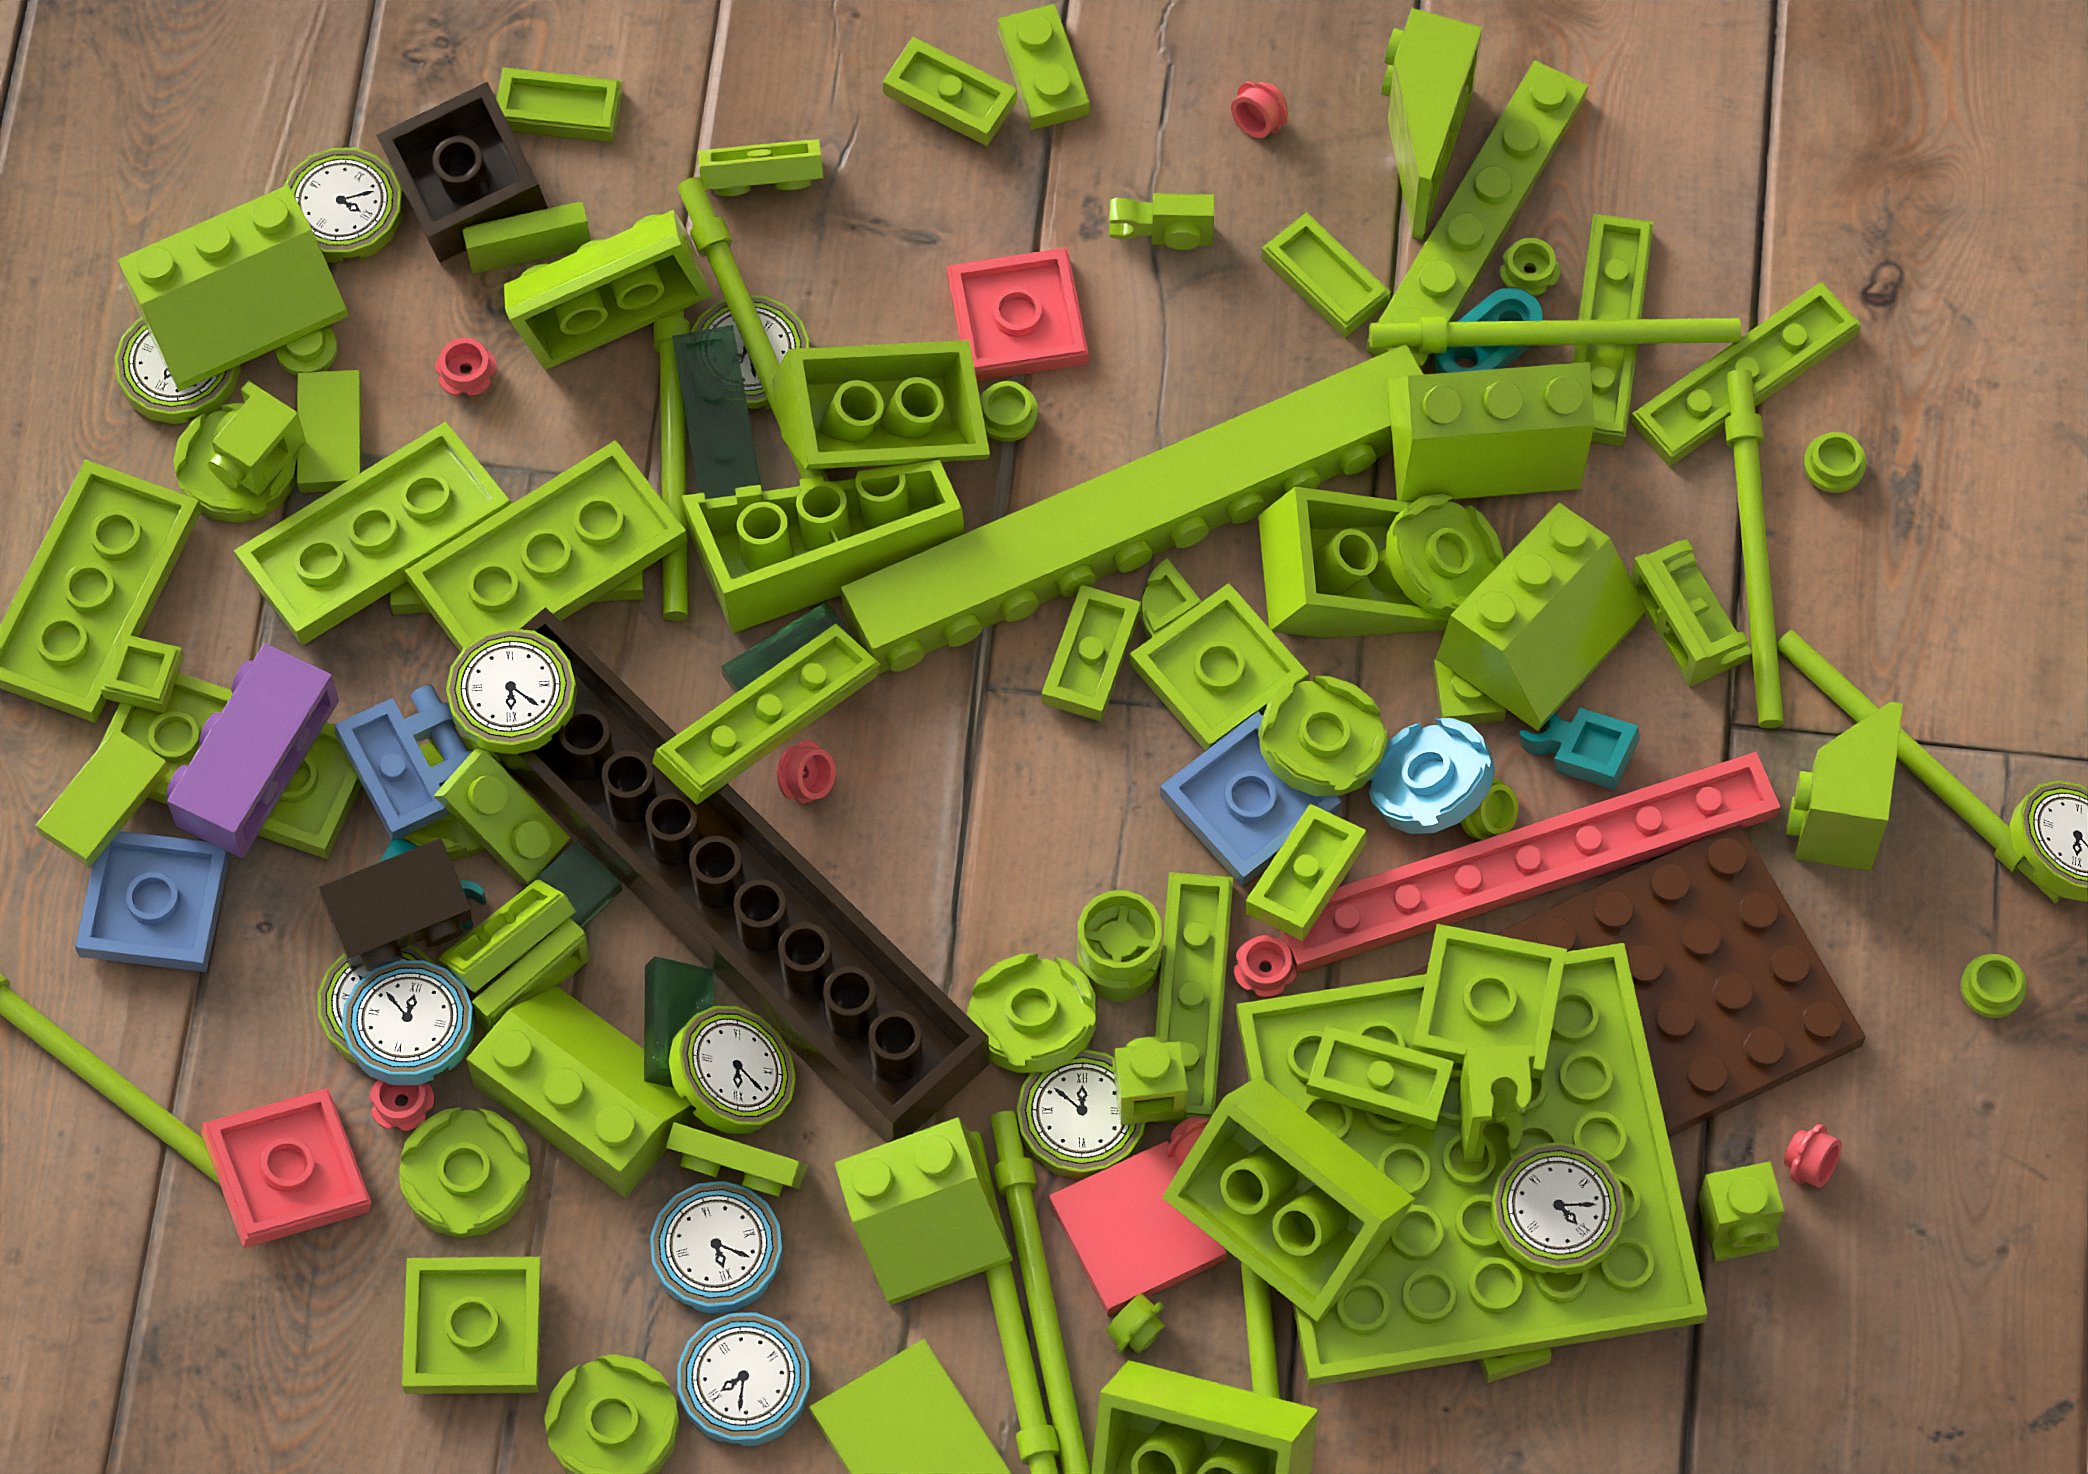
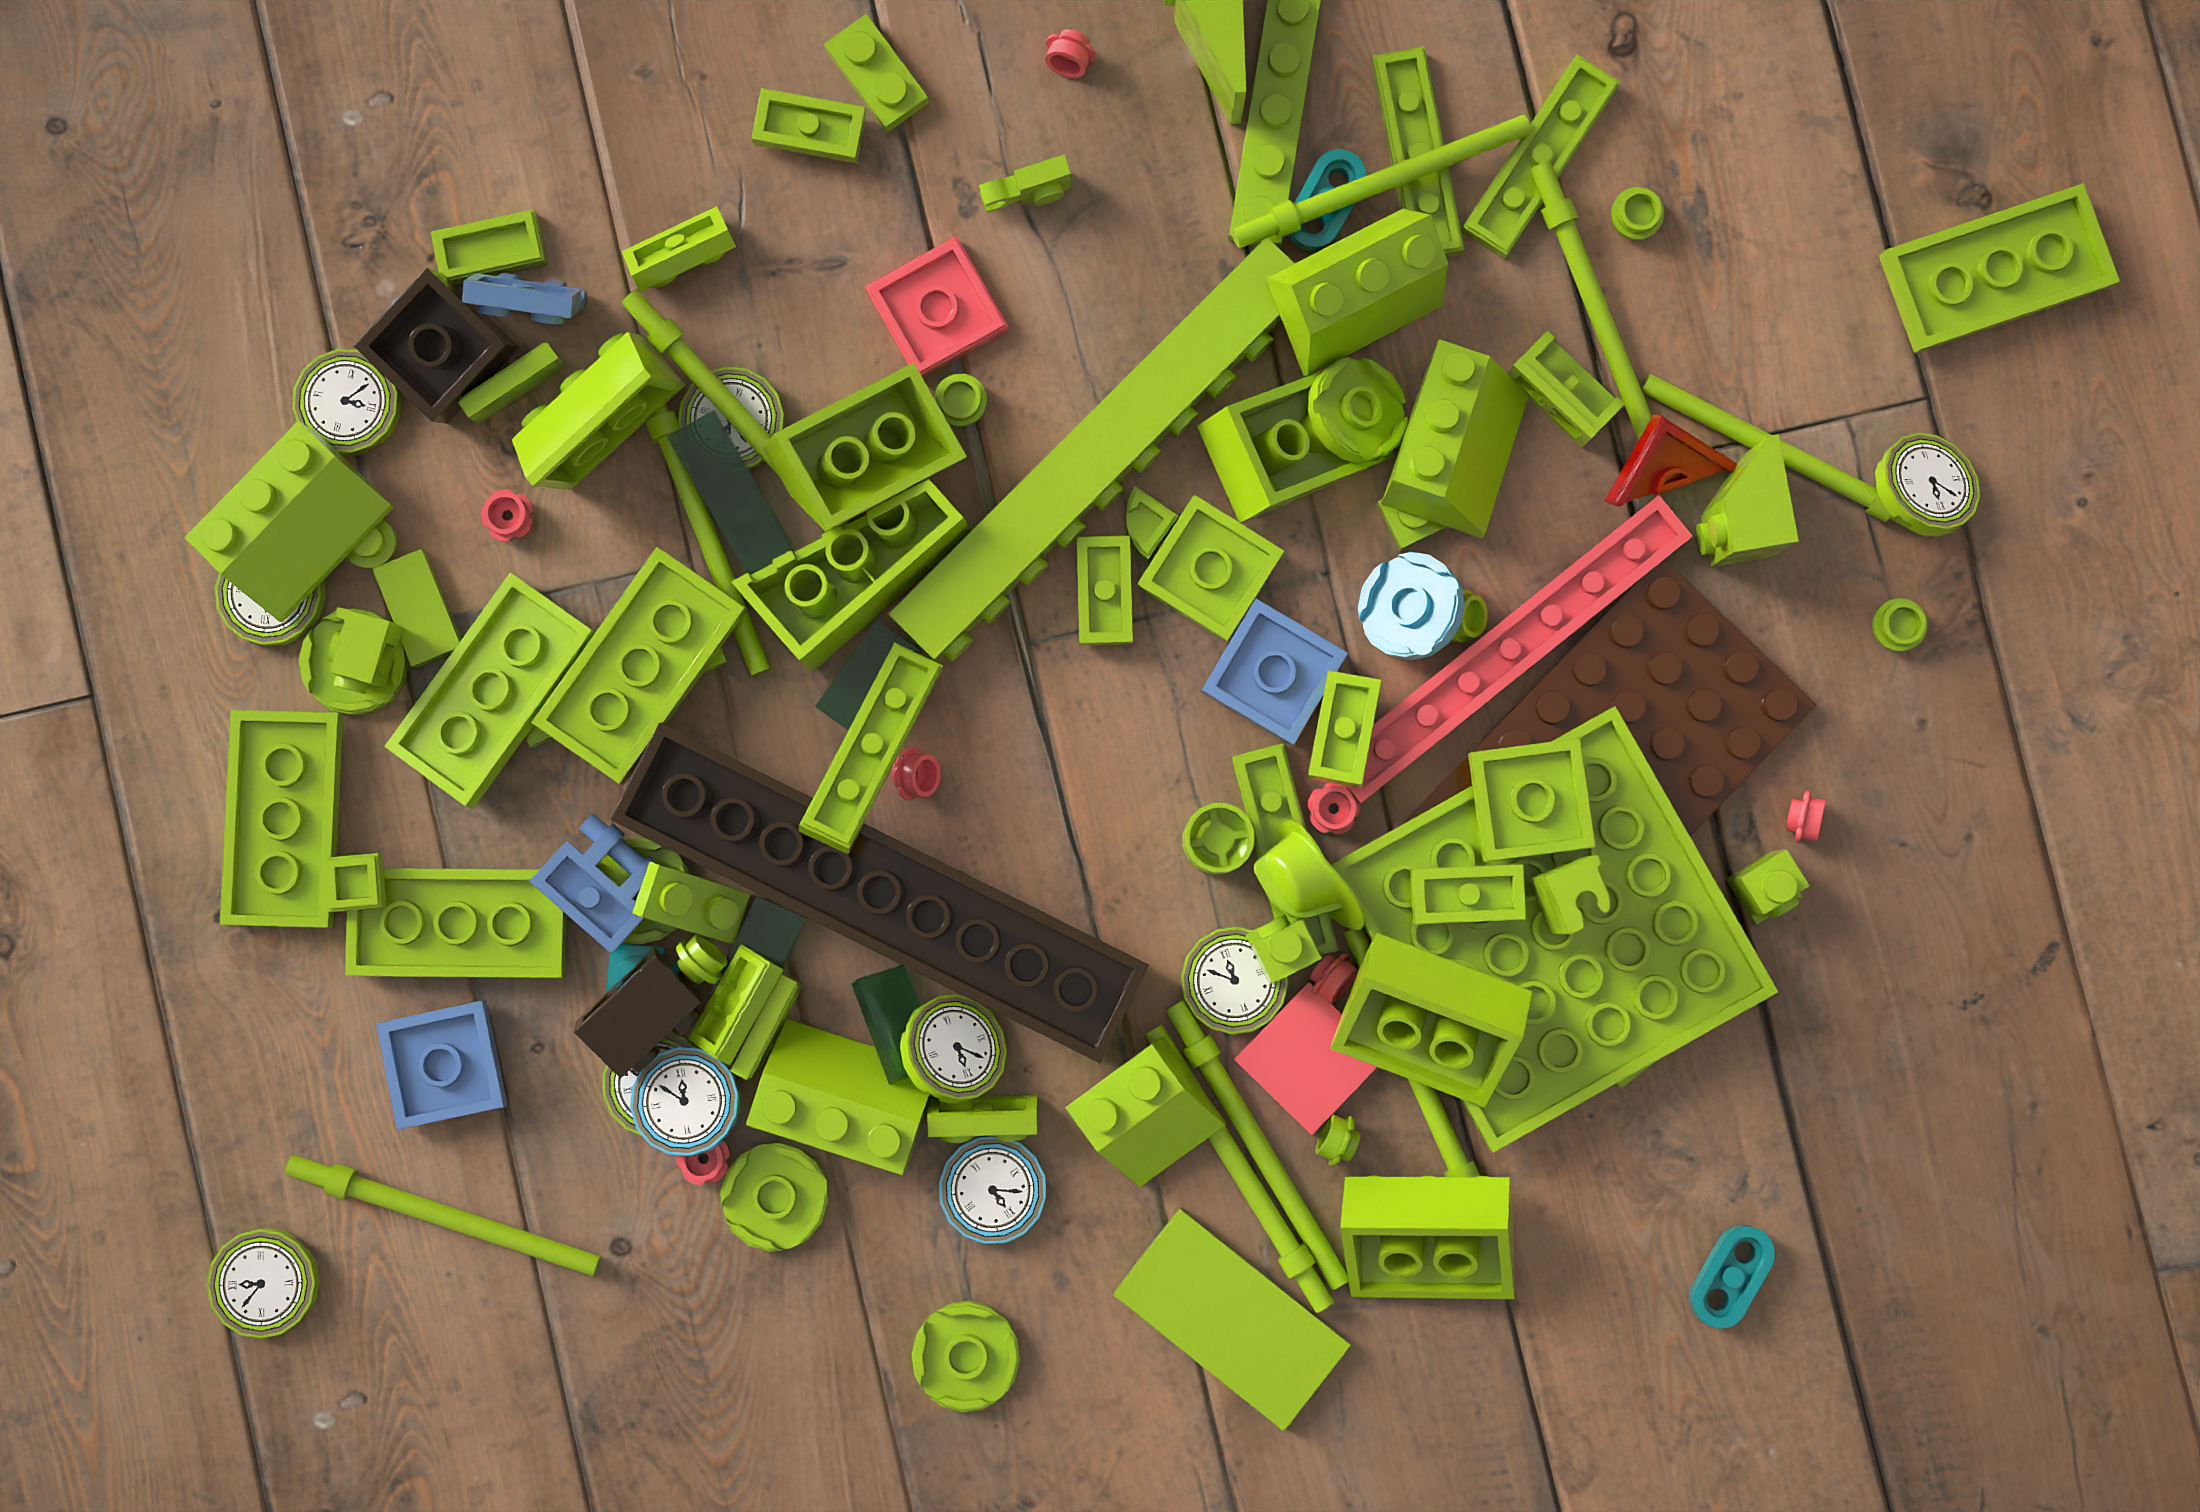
camera: 20 degrees left, 20 degrees up
(102, 797) = (367, 1001): lime tile -> none
(251, 749) = (469, 924): medium lavender brick -> none
(286, 1168) = (636, 1247): coral tile -> none
(472, 1325) = (830, 1322): lime plate -> none
(487, 878) = (701, 959): none -> lime plate
(511, 690) = (661, 809): tile -> none
(570, 148) = (506, 292): none -> medium blue plate
(743, 1379) = (1053, 1287): tile -> none
(1034, 1012) = (1167, 913): lime tile -> none
(1200, 1008) = (1304, 882): none -> lime piece
(1322, 736) = (1315, 603): lime tile -> none
(1325, 275) = (1173, 185): lime tile -> none
(1531, 253) = (1342, 110): lime plate -> none
(1558, 1208) = (1639, 951): tile -> none
(1588, 747) = (1526, 534): teal plate -> none
(1772, 719) = (1665, 461): none -> red tile

